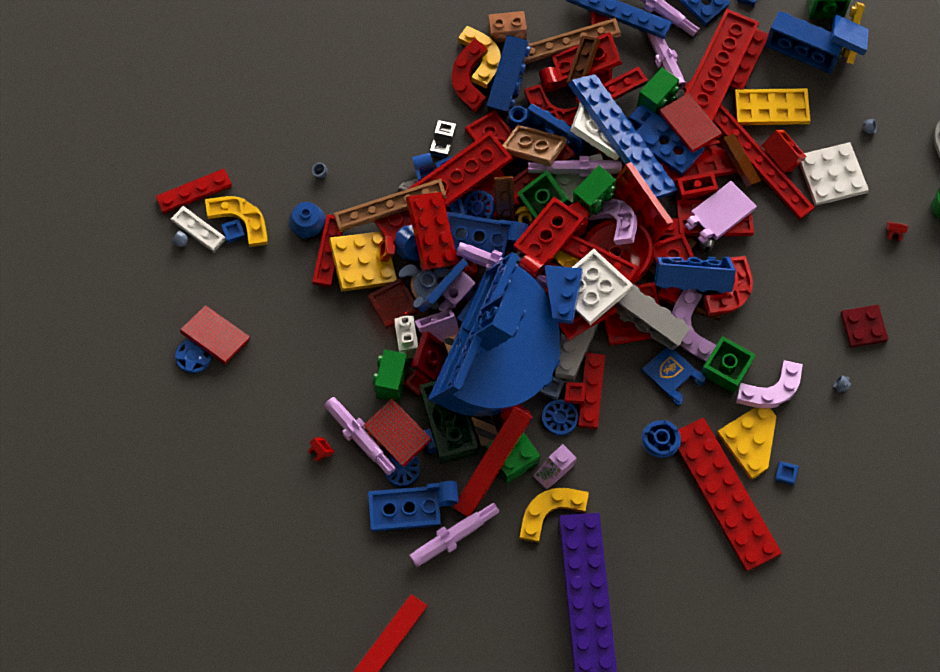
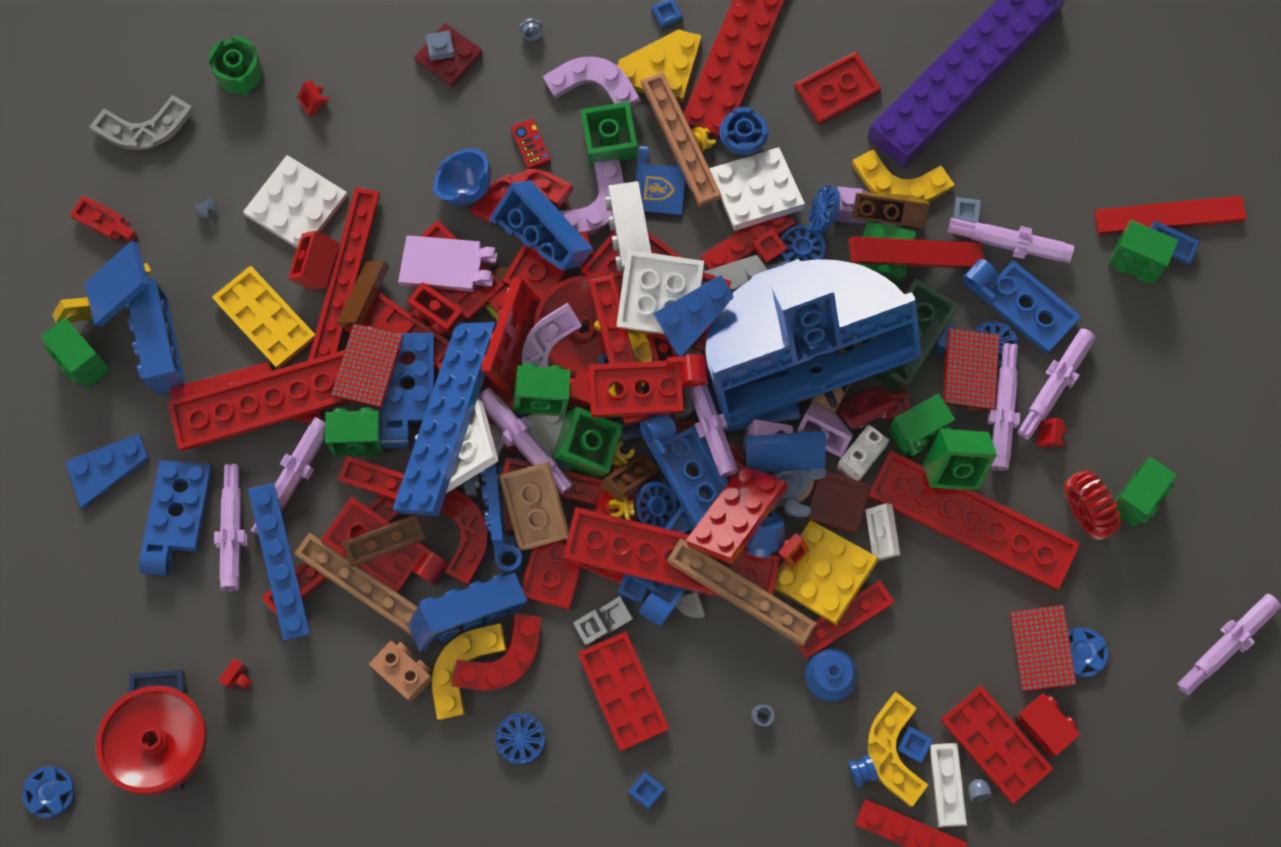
camera: 130 degrees left, 5 degrees up
(120, 436) = (1236, 637): none -> lavender piece
(175, 300) = (1048, 725): none -> red brick
(193, 267) = (996, 744): none -> red plate
(239, 458) = (1144, 492): none -> green brick
(245, 191) = (862, 771): none -> blue wheel
(260, 424) = (1092, 505): none -> red gear
(314, 363) = (975, 522): none -> red plate
(338, 91) = (646, 790): none -> blue tile
(348, 485) = (1061, 375): none -> lavender piece
(353, 374) = (959, 459): none -> green brick
(355, 310) = (882, 531): none -> white plate
(364, 630) = (1185, 247): none -> blue tile
(373, 597) = (1142, 252): none -> green brick
(397, 117) = (623, 691): none -> red plate
(420, 55) = (520, 738): none -> blue wheel
(488, 185) = (626, 508): none -> yellow plate
(496, 527) = (966, 209): none -> sand blue plate
(534, 477) = (891, 209): none -> reddish brown slope
(570, 442) = (824, 208): none -> blue wheel
(618, 420) = (757, 189): none -> white plate
(645, 529) = (837, 88): none -> red tile
(681, 415) = (701, 138): none -> yellow plate
(689, 401) = (681, 139): none -> nougat tile
(762, 323) = (530, 144): none -> tile
(768, 261) = (463, 177): none -> blue cylinder
(871, 319) = (439, 45): none -> sand blue plate
(905, 71) = (102, 220): none -> red hinge

